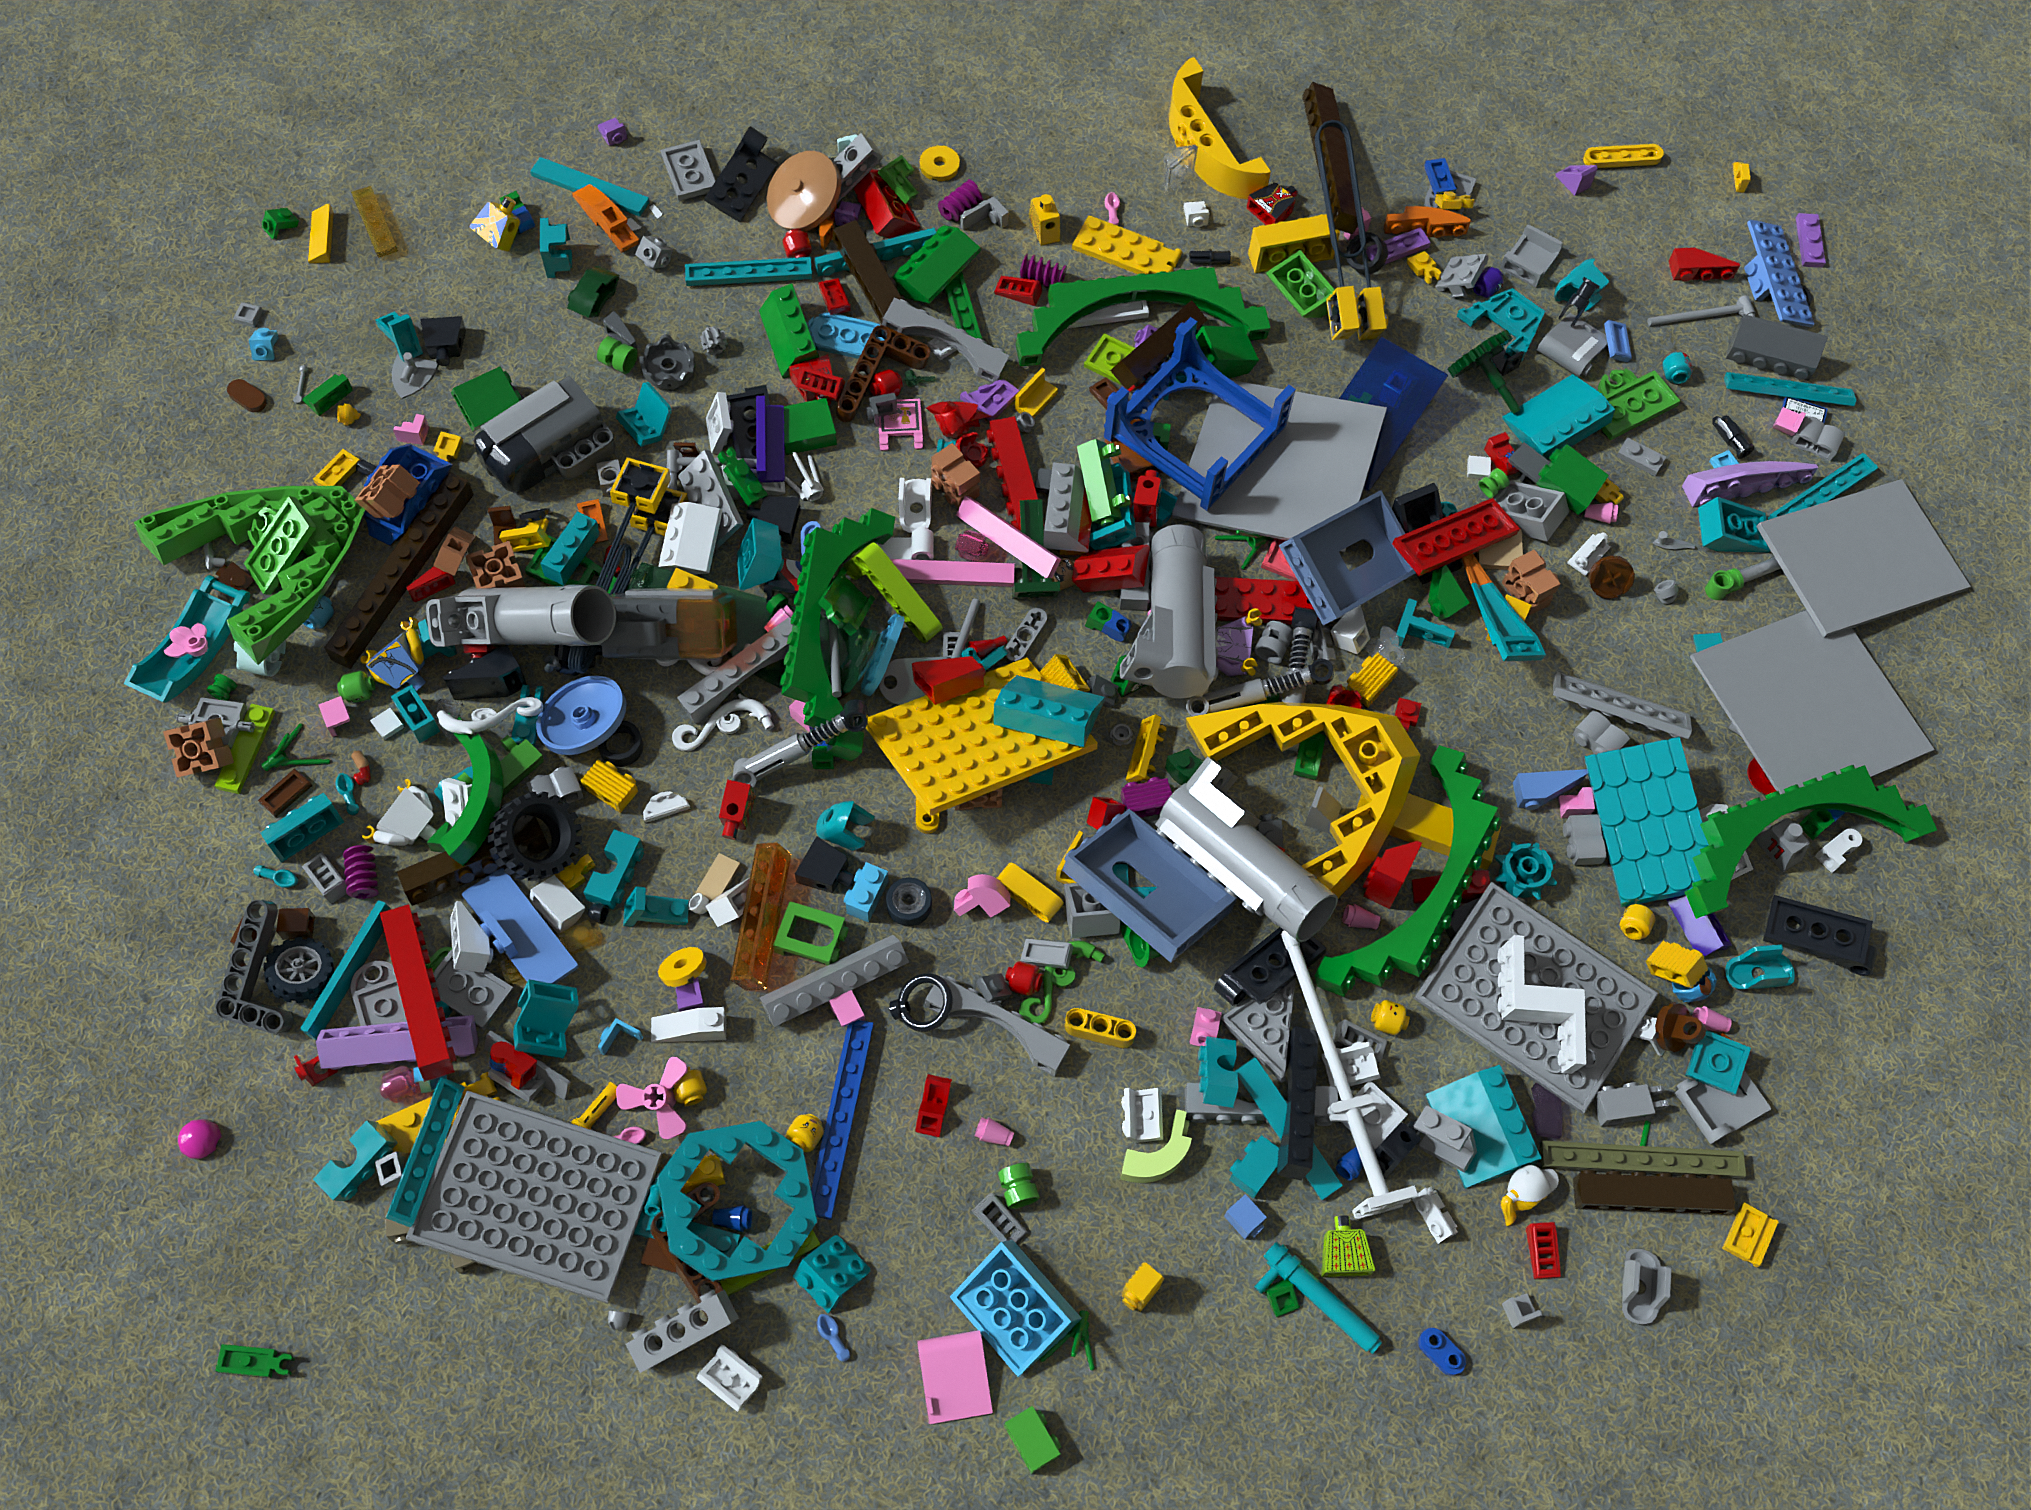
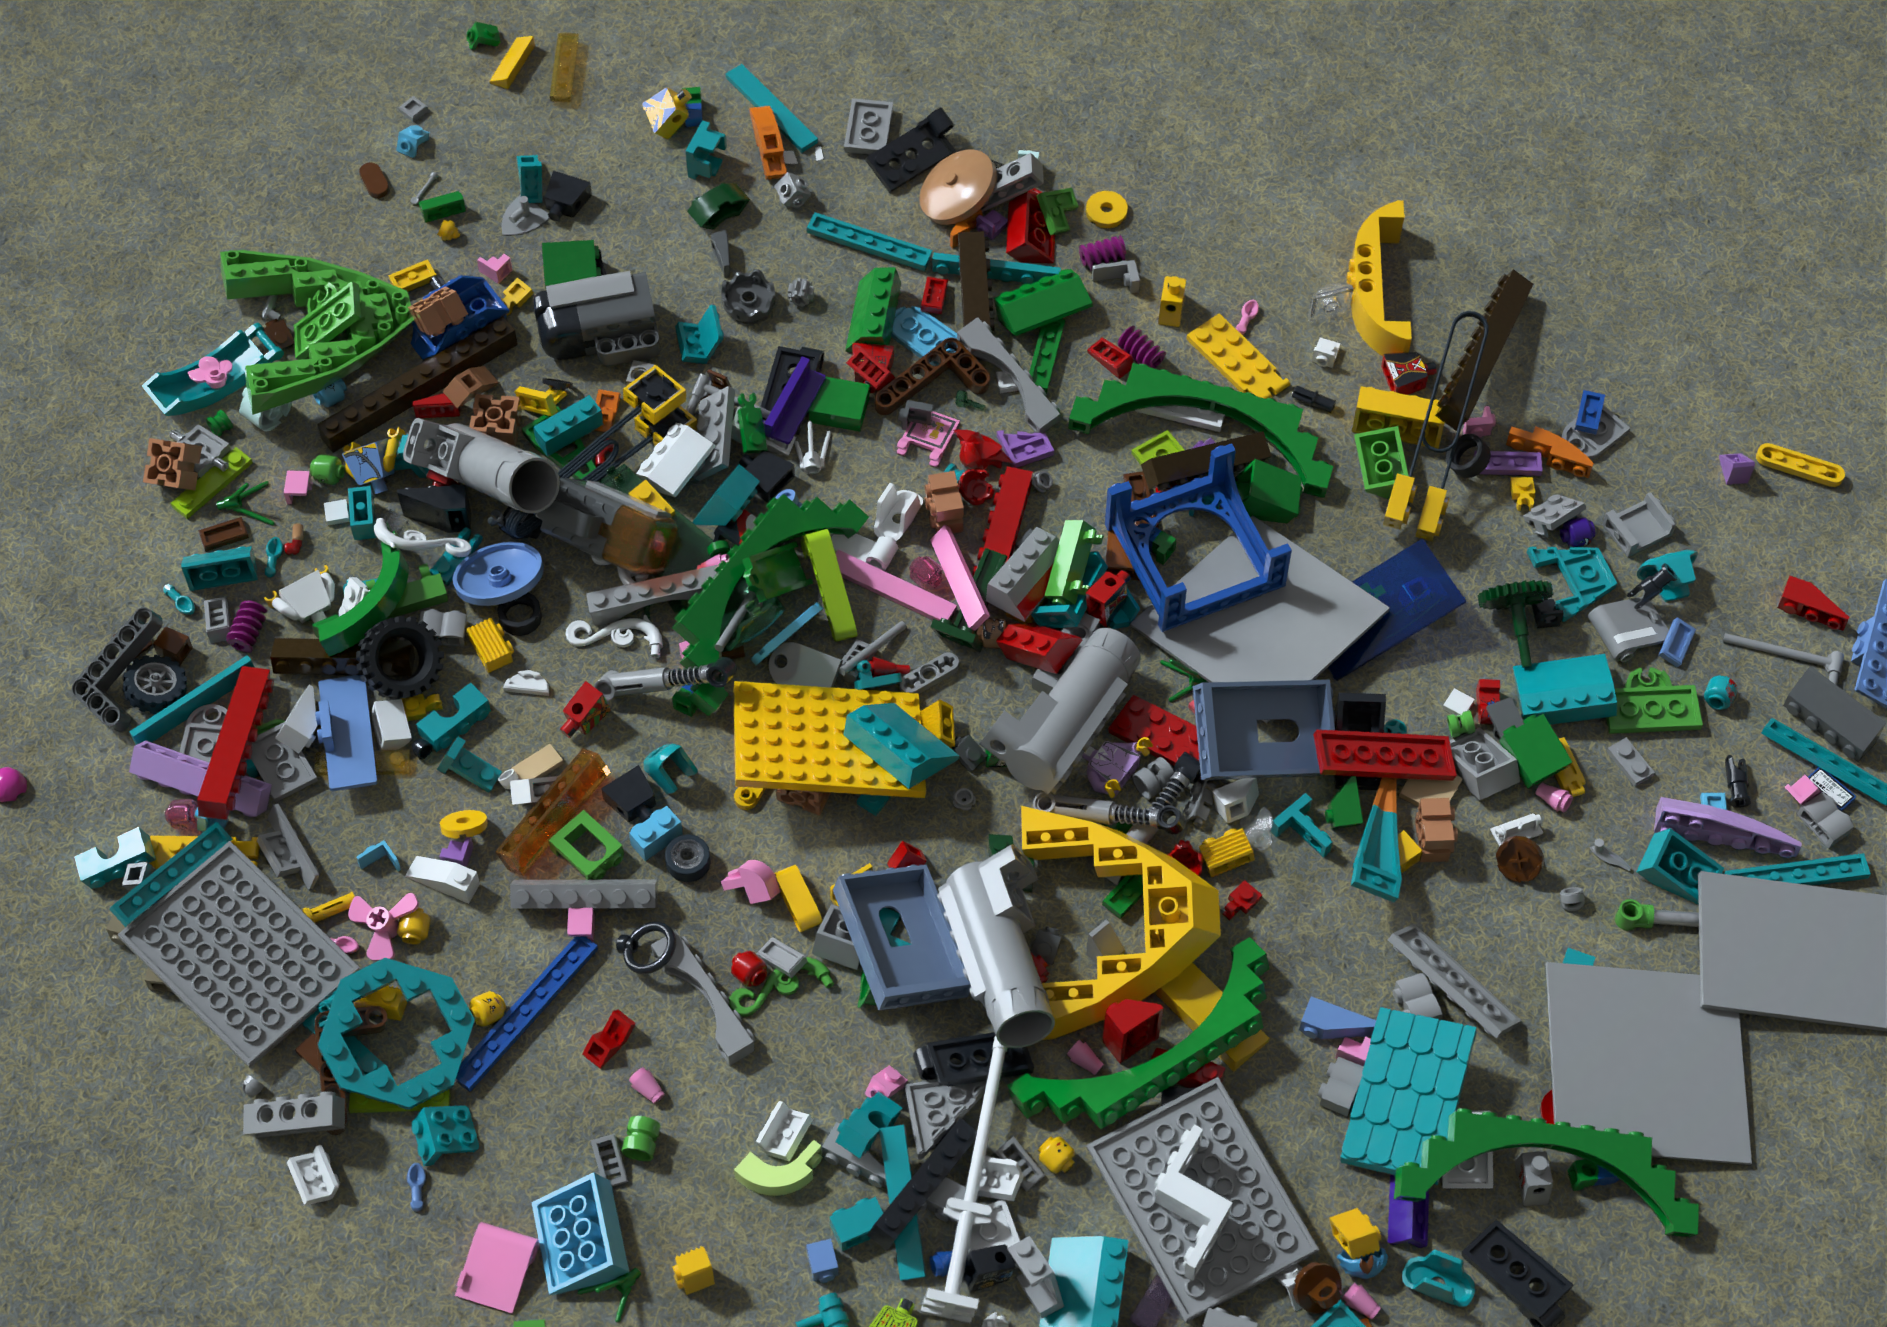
camera: 30 degrees right, 5 degrees down
(307, 1072) = (118, 770): red bracket -> none
(502, 519) = (527, 376): reddish brown bracket -> none
(513, 1063) = (281, 838): red leg -> none
(544, 1018) = (326, 813): teal piece -> none
(612, 131) = (820, 65): medium lavender bracket -> none
(615, 354) = (707, 271): bright green wheel -> none
(719, 423) = (761, 368): white plate -> none
(735, 1218) = (391, 1051): blue cone -> none
(797, 244) = (927, 233): red head -> none
(886, 383) = (934, 393): red head -> none
(948, 677) = (830, 678): red slope -> none
(994, 988) = (716, 964): dark grey bracket -> none
(1035, 395) = (1067, 460): yellow panel -> none
(1108, 622) = (1010, 693): leg -> none
(1108, 1037) = (786, 1032): yellow beam -> none
(1145, 749) = (977, 822): yellow plate -> none
(1146, 798) = (945, 860): magenta brick -> none
(1451, 201) = (1586, 439): yellow plate -> none
(1525, 870) = (1268, 1073): teal brick -> none
(1637, 922) = (1345, 1181): yellow head -> none
(1844, 844) = (1589, 1207): white leg -> none

